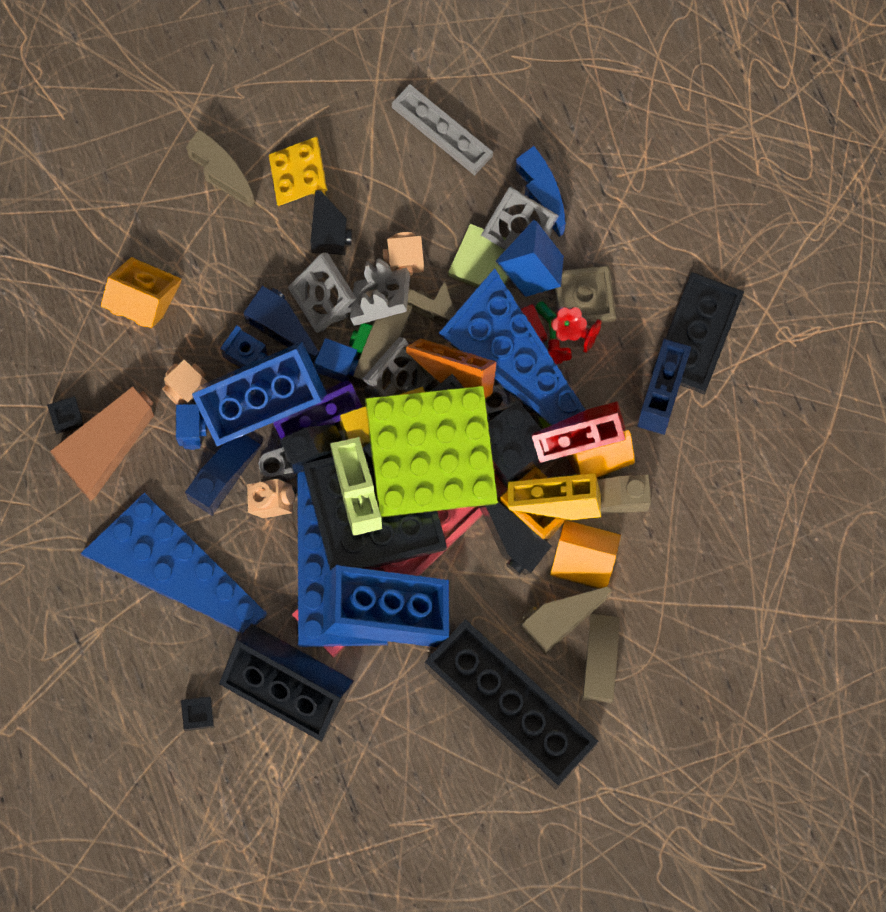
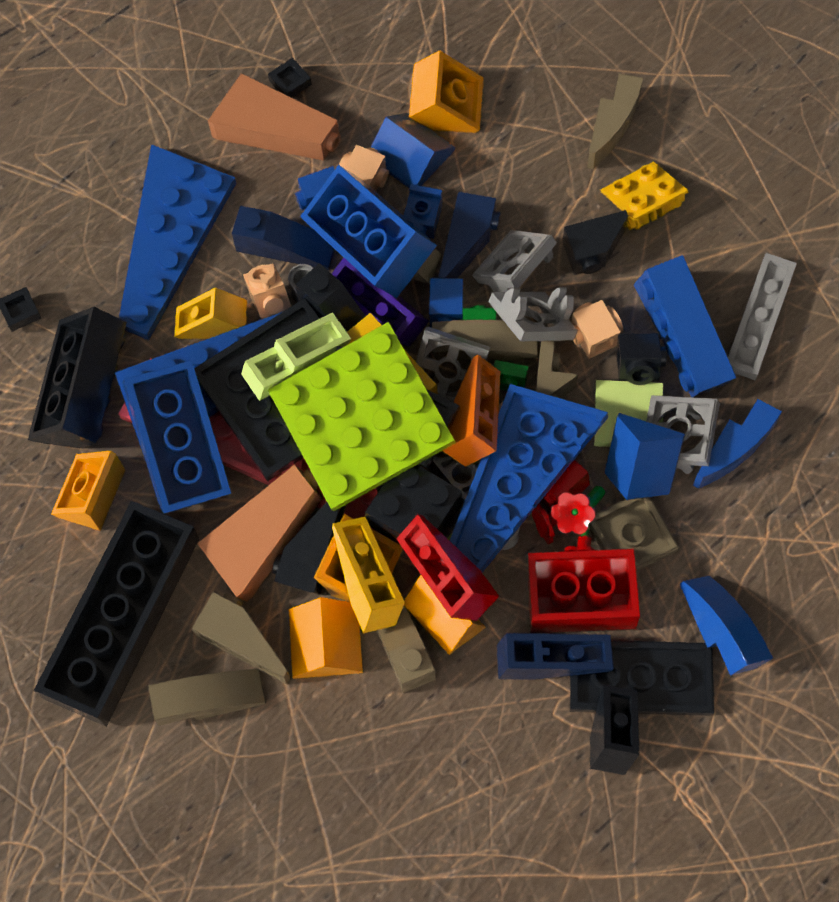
camera: 75 degrees right, 5 degrees down
(179, 338) = (410, 149): none -> blue slope
(271, 554) = (210, 315): none -> yellow slope
(388, 701) = (89, 489): none -> light orange slope
(422, 330) = (511, 374): none -> green plate
(431, 187) = (684, 326): none -> blue wedge
(445, 231) = (640, 358): none -> black brick
(485, 574) = (255, 534): none -> nougat slope
(622, 345) = (583, 591): none -> red slope
(683, 255) = (725, 625): none -> blue slope
(736, 364) = (615, 731): none -> black slope

